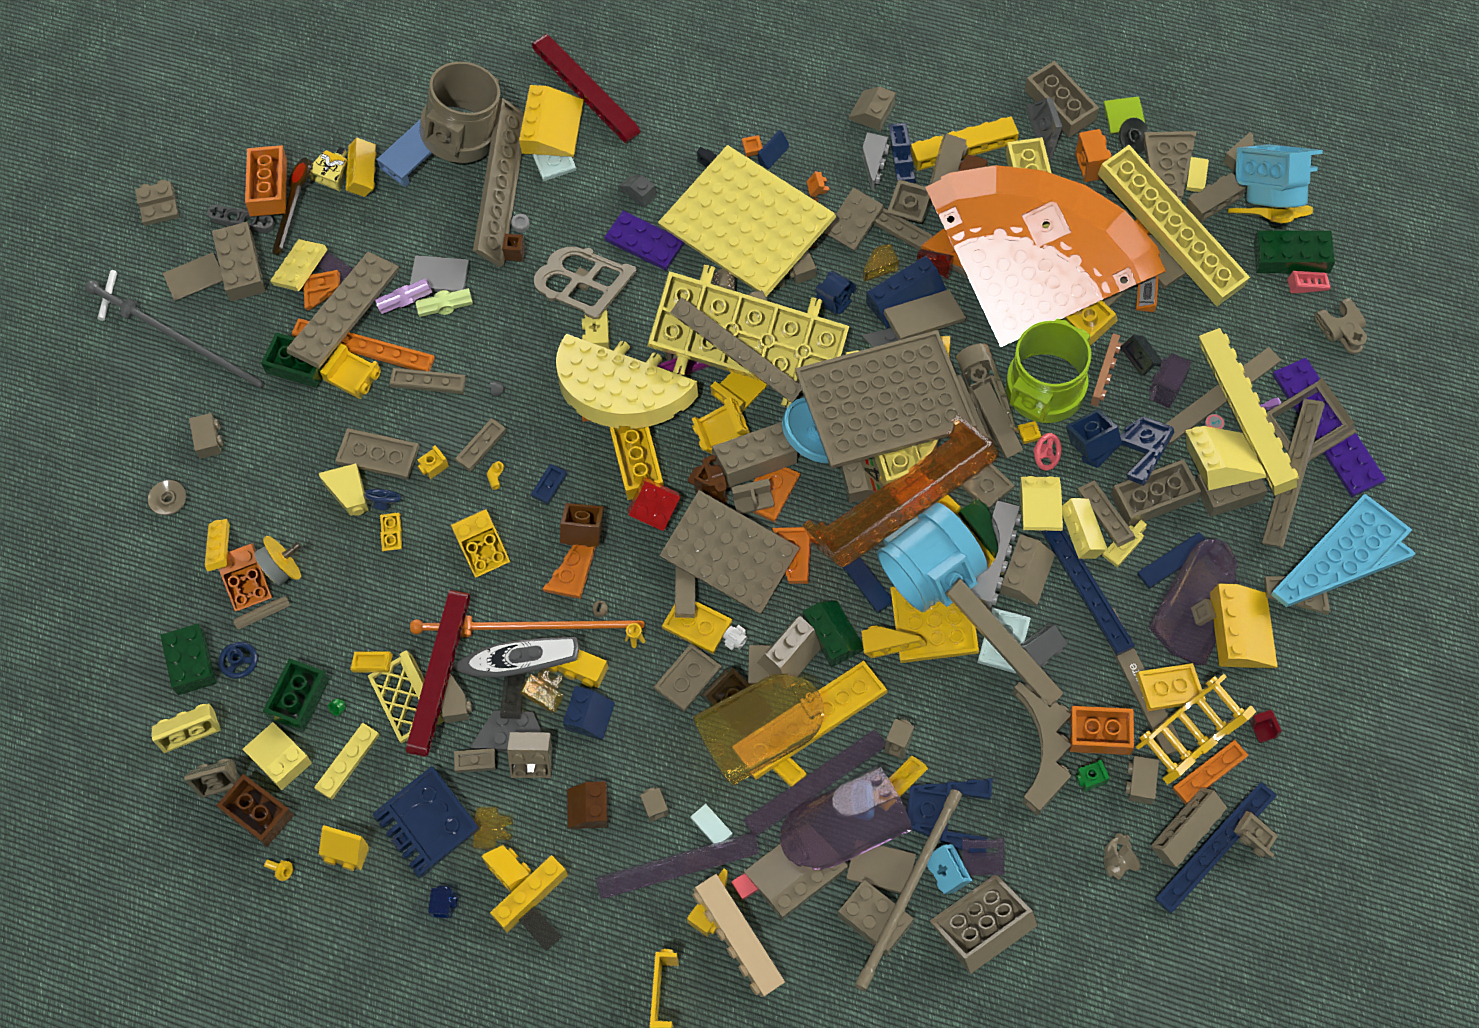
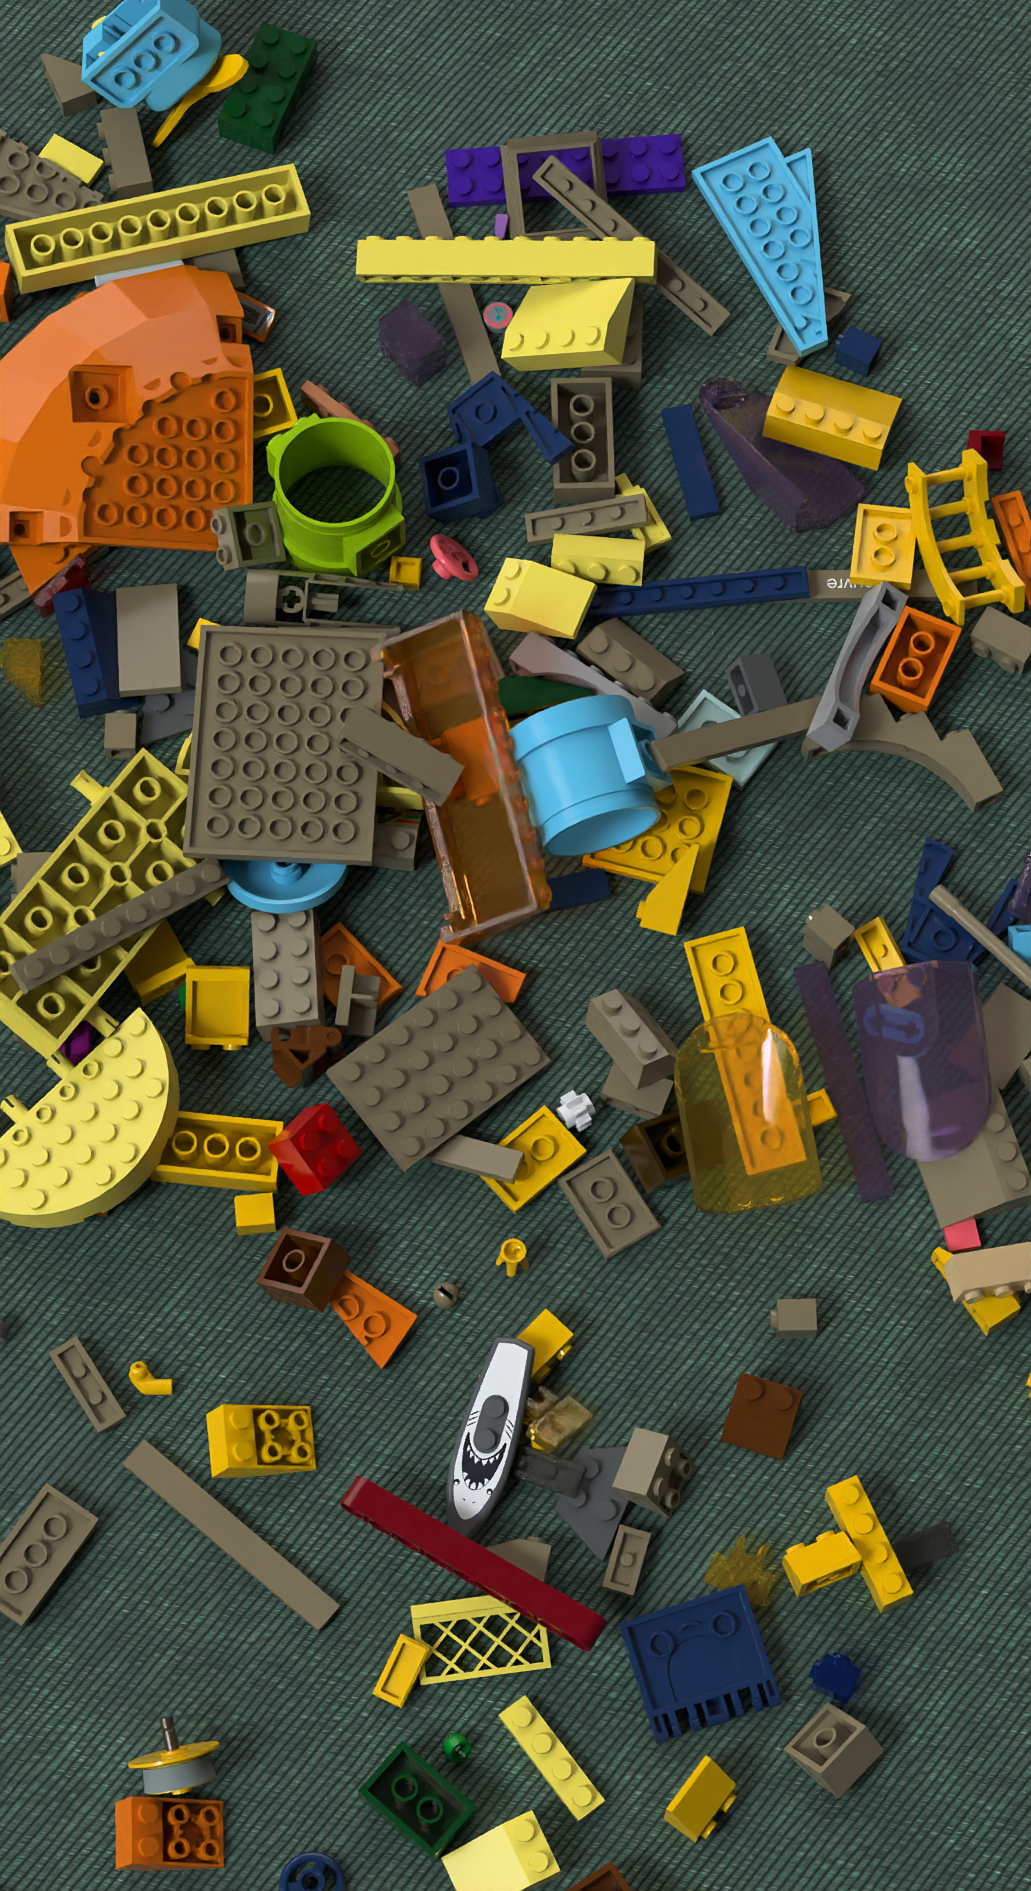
camera: 75 degrees left, 5 degrees up
(217, 545) = (107, 1854): yellow plate -> none
(261, 612) = (244, 1824): dark tan axle -> none
(347, 488) = (81, 1621): light yellow slope -> none
(381, 498) = (124, 1572): dark blue piece -> none
(391, 532) = (184, 1576): yellow slope -> none
(397, 916) = (834, 1749): none -> dark tan slope
(418, 626) = (369, 1580): orange bar -> none
(421, 548) = (231, 1535): none -> dark tan tile
(432, 463) = (85, 1458): yellow brick -> none
(549, 484) = (203, 1302): dark blue plate -> none
(588, 713) = (614, 1368): dark blue slope -> none
(609, 491) = (255, 1213): none -> yellow panel
(677, 865) = (899, 1319): clear purple tile -> none
(711, 825) = (854, 1250): light aqua tile -> none
(833, 631) = (629, 965): dark green slope -> none
(835, 292) = (54, 753): dark blue brick -> none
(862, 323) = (121, 735): none -> dark tan brick
(901, 455) = (399, 754): none -> dark tan brick
(997, 420) = (375, 606): dark tan tile -> none
(1003, 336) = (248, 536): none -> dark tan plate
(1080, 693) = (839, 705): none -> light grey arch
(1087, 782) = (973, 692): green brick -> none
(1138, 221) = (105, 278): none -> white bar
(1141, 354) = (345, 366): black panel -> none
(1203, 612) = (790, 455): dark tan plate -> none
(1294, 628) = (857, 350): none -> dark blue brick
(1297, 284) = (319, 109): coral slope -> none
(1345, 329) = (423, 74): dark tan piece -> none

